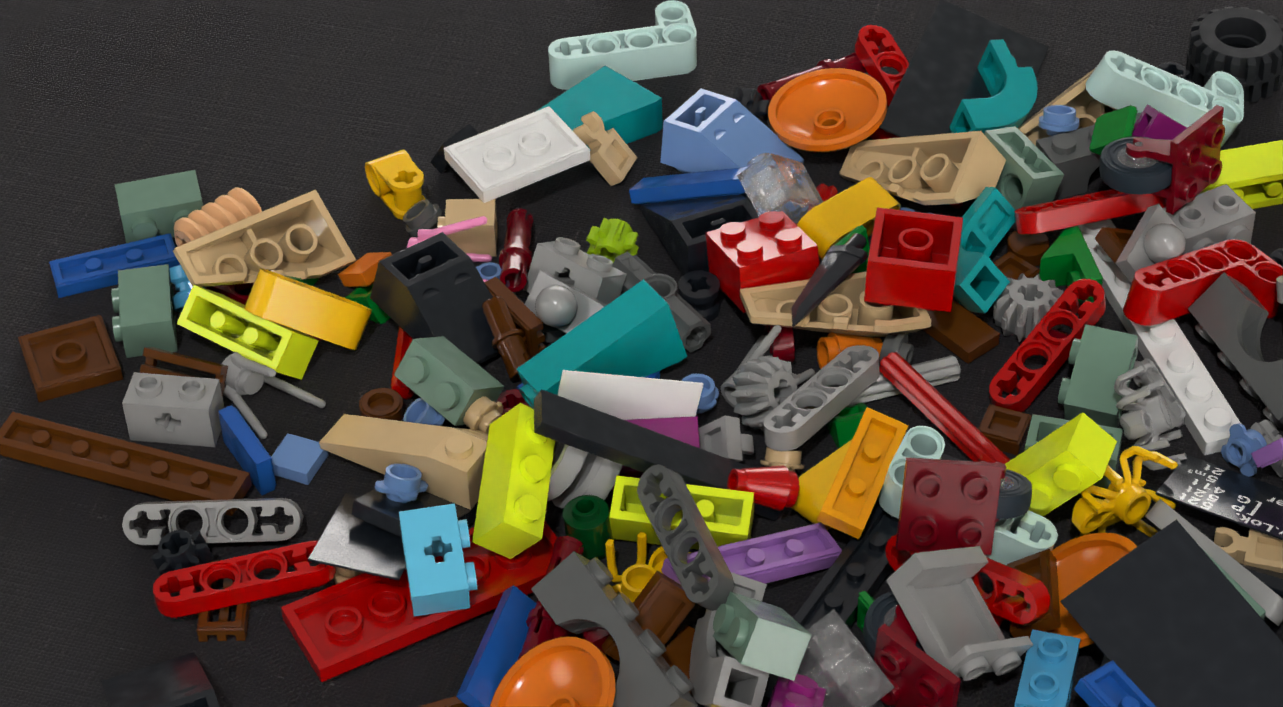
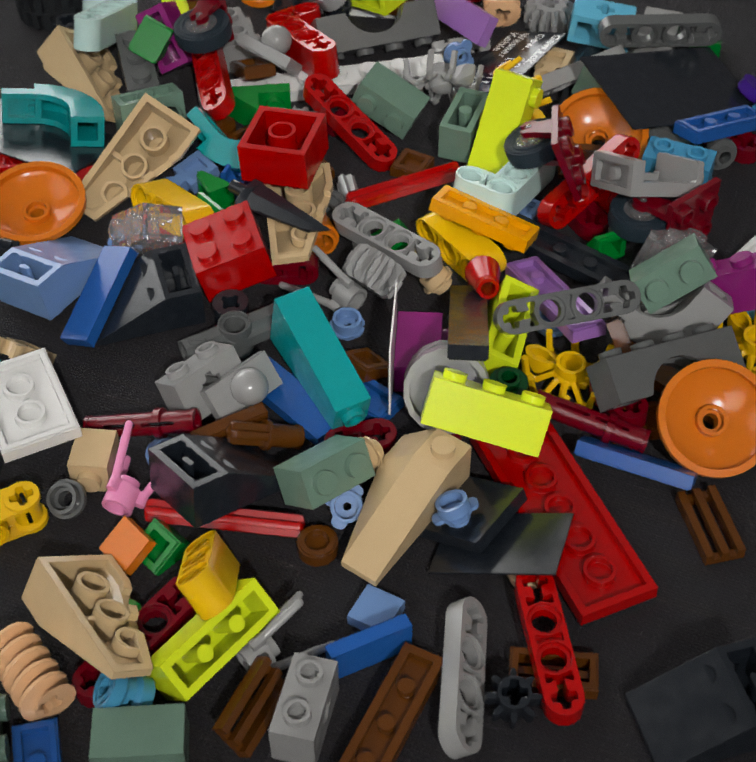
camera: 85 degrees left, 5 degrees up
(431, 534) = (564, 480): medium azure brick -> none
(612, 239) = (151, 358): lime gear -> none
(725, 438) = (421, 300): light grey tile -> none
(1058, 119) = (109, 75): medium blue plate -> none

